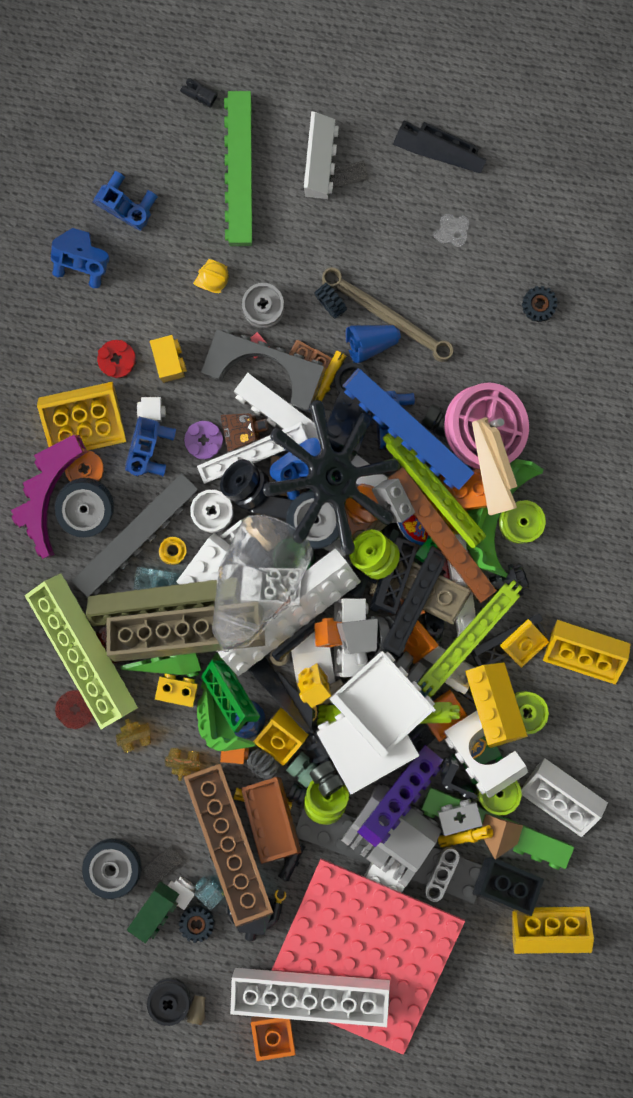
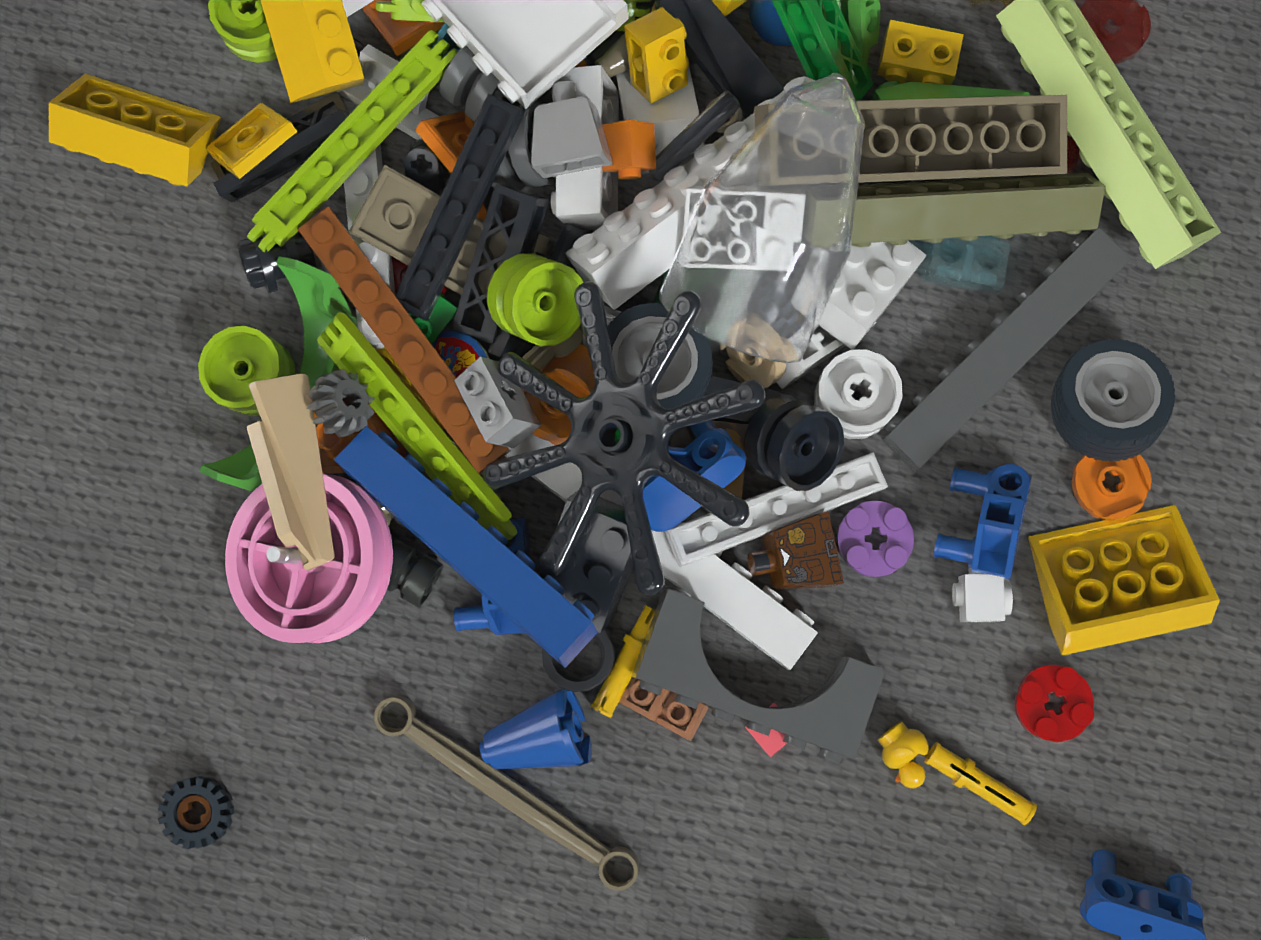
camera: 175 degrees left, 5 degrees down
(39, 489) = (1201, 435): magenta arch -> none
(155, 320) = (941, 758): none -> yellow pin
(167, 359) = (953, 699): yellow brick -> none
(168, 559) = (937, 303): yellow wheel -> none
(193, 336) = (899, 748): none -> yellow animal
(212, 276) = (862, 873): yellow piece -> none
(263, 294) = (764, 833): light grey wheel -> none
(330, 300) = (621, 819): black bush -> none
(471, 500) = (340, 403): none -> dark grey gear

